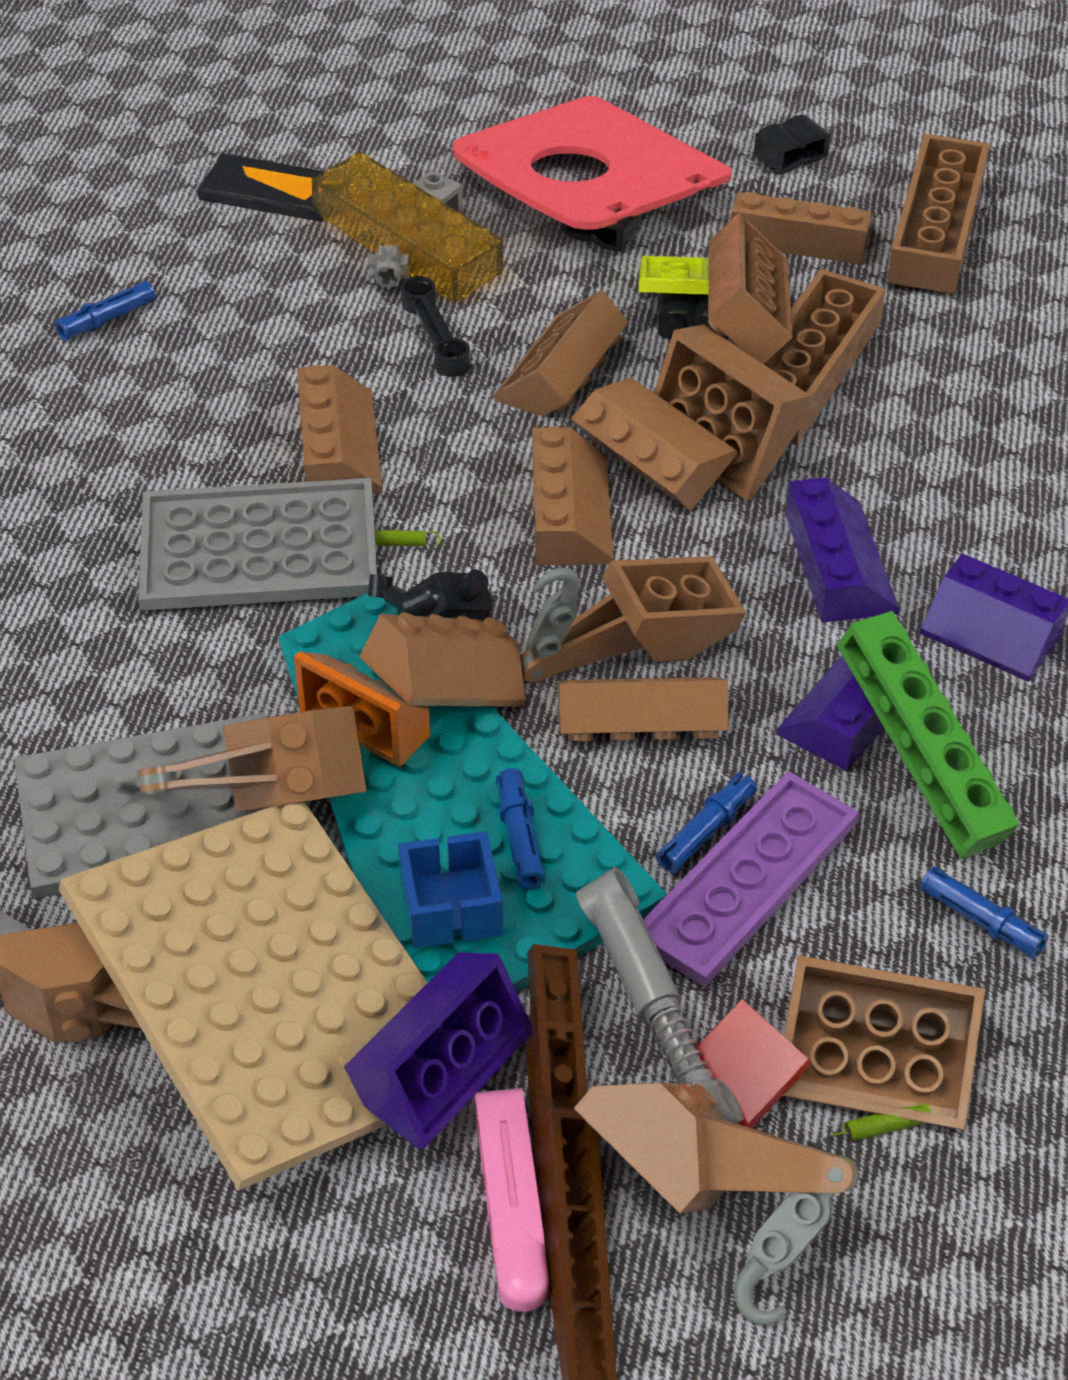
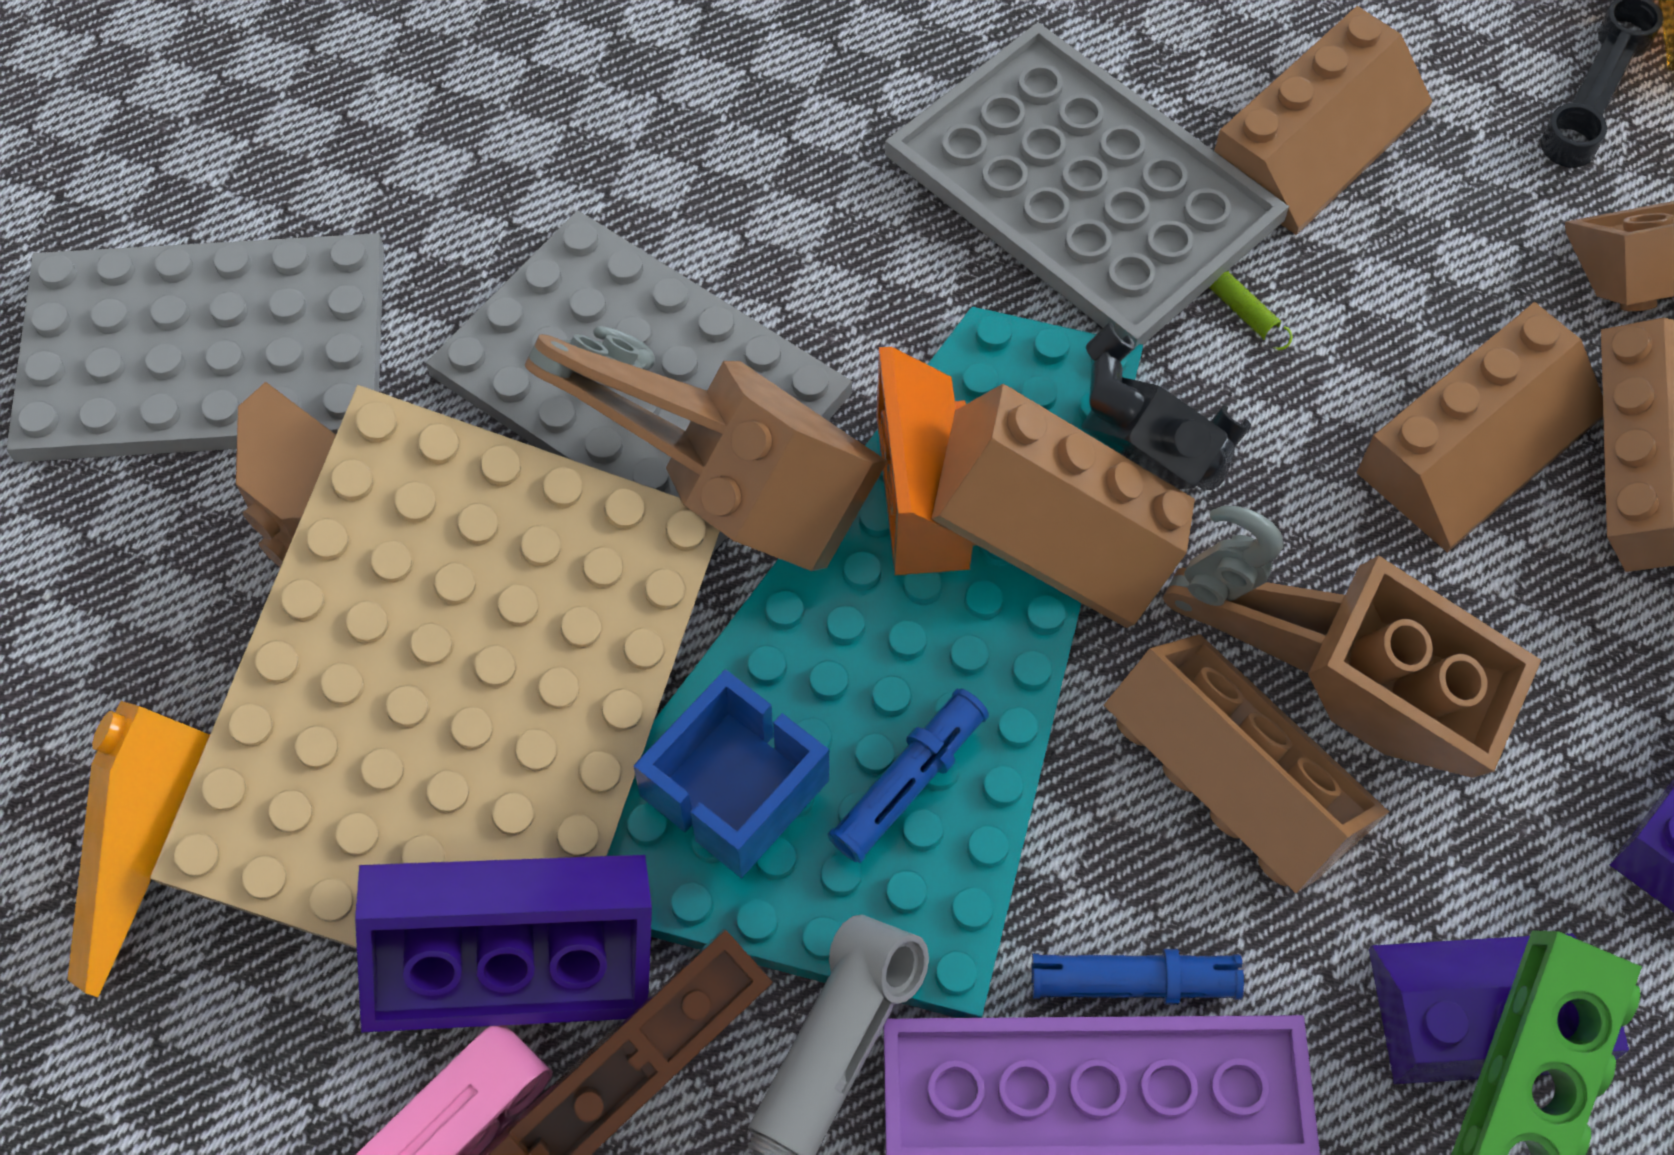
camera: 50 degrees right, 15 degrees up
(190, 1193) = (131, 806): none -> light orange wedge

